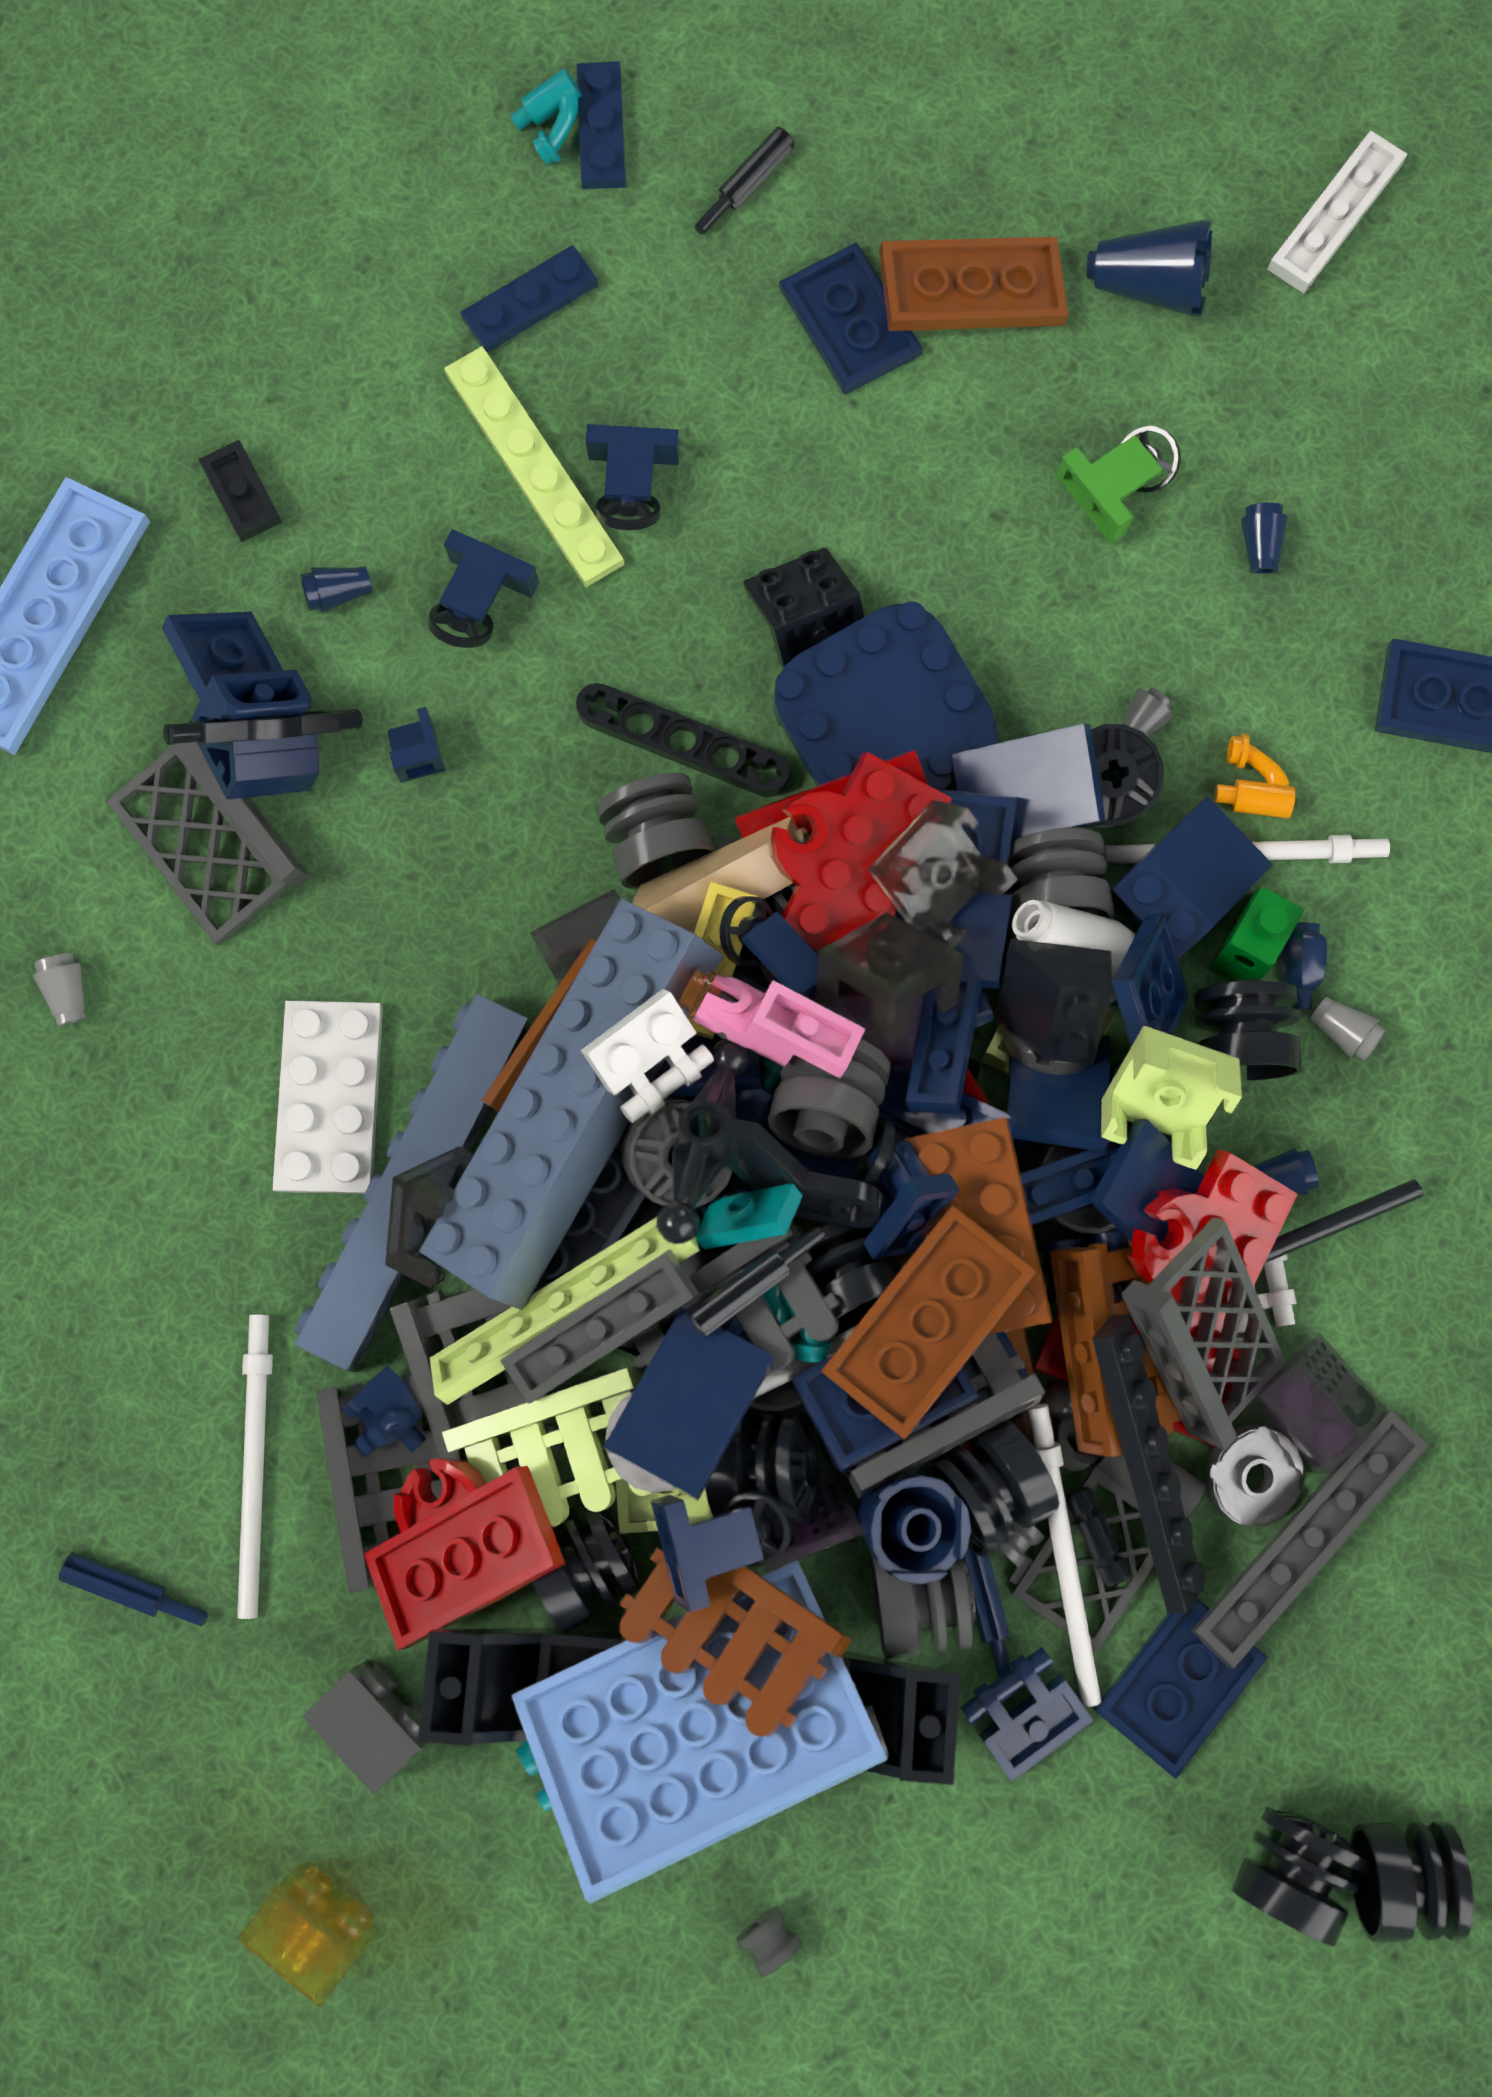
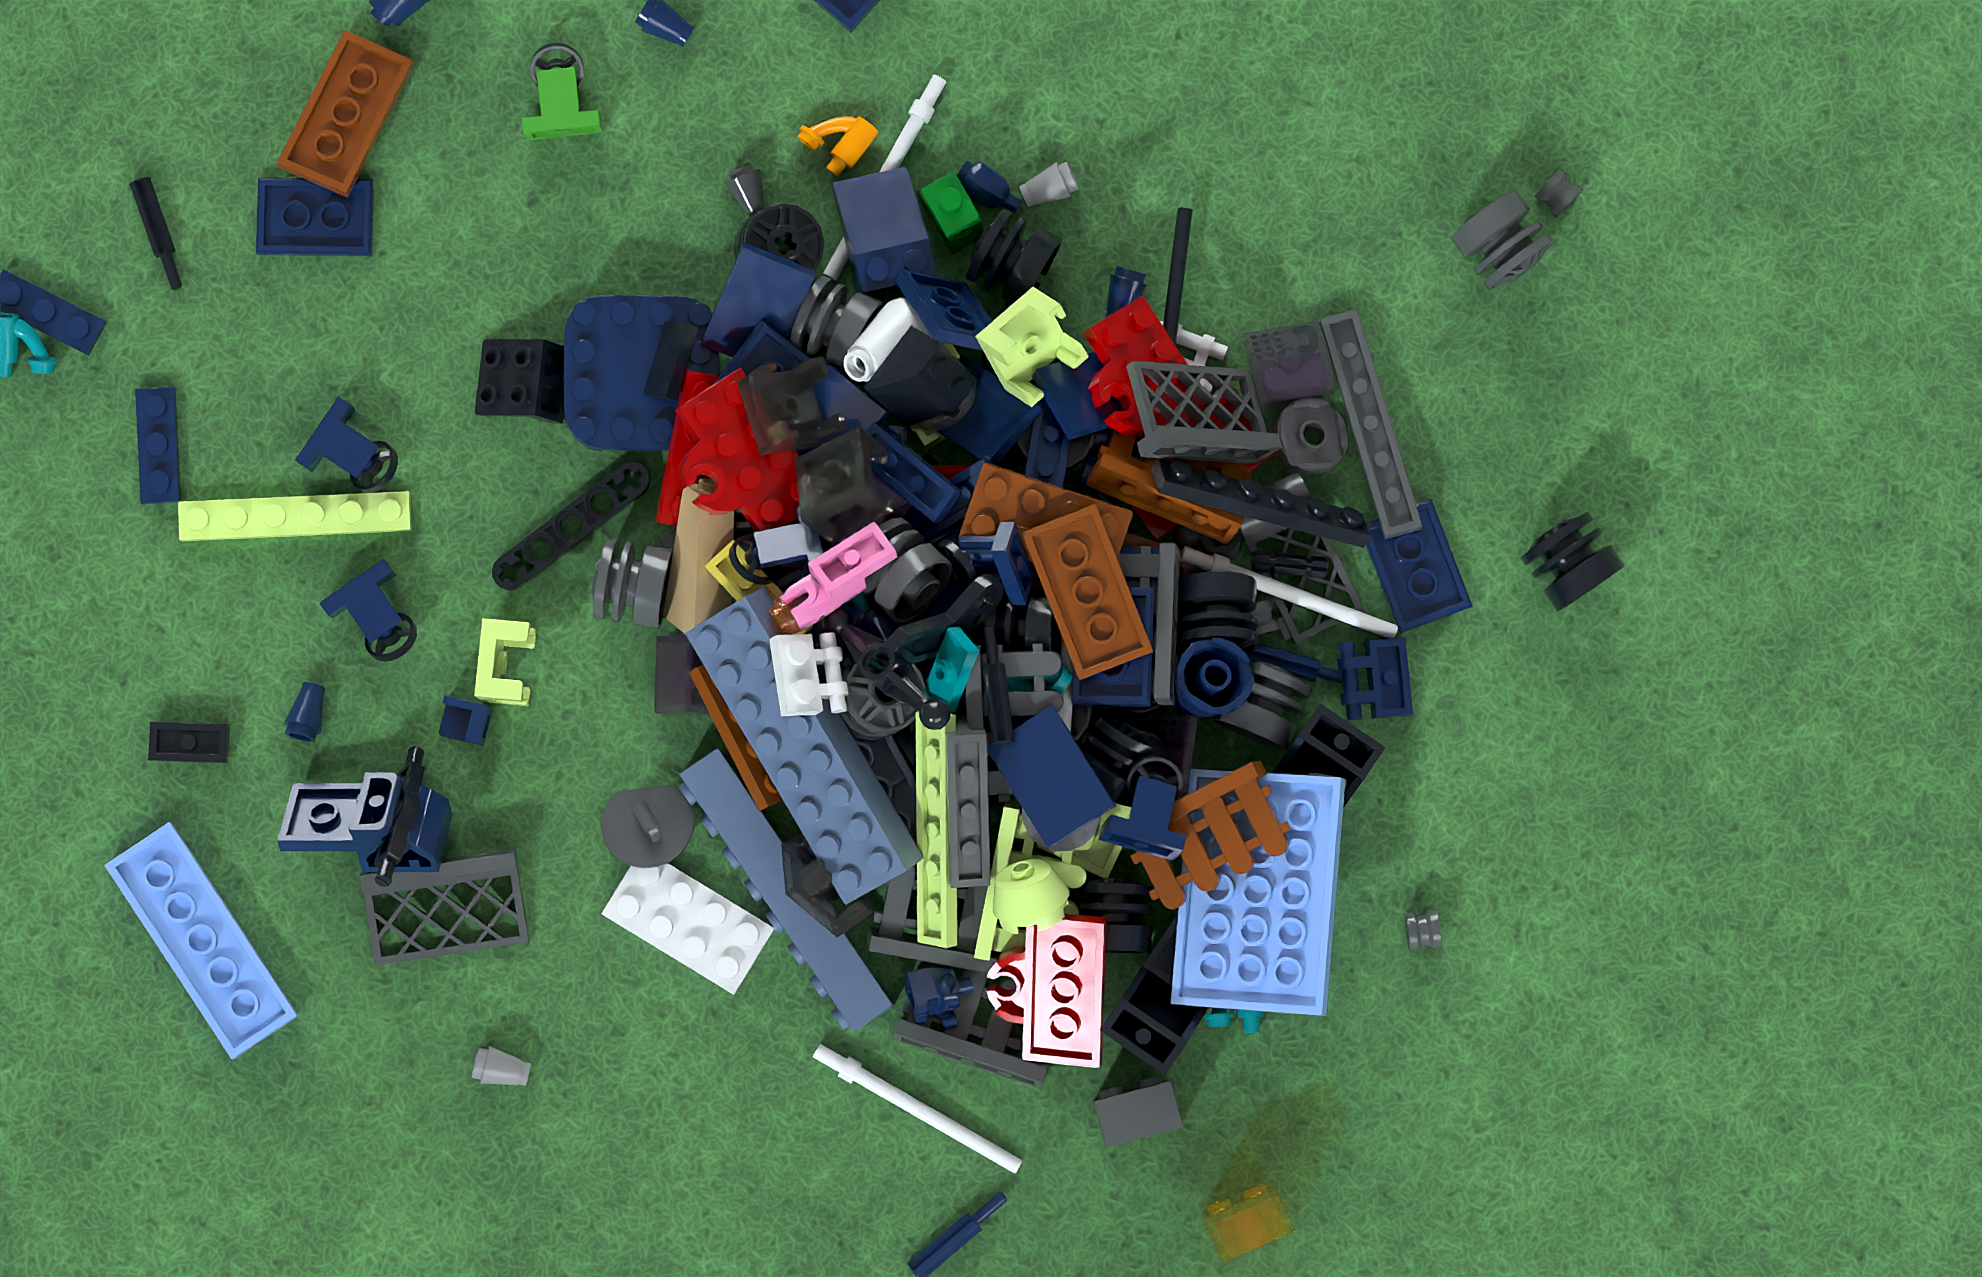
camera: 60 degrees left, 5 degrees up
(406, 996) = (647, 825): none -> dark grey shield
(489, 732) = (493, 661): none -> yellowish green panel
(537, 1458) = (1029, 895): none -> yellowish green cone
(915, 730) = (671, 360): none -> black tile
(1413, 1882) = (1618, 487): black wheel -> none

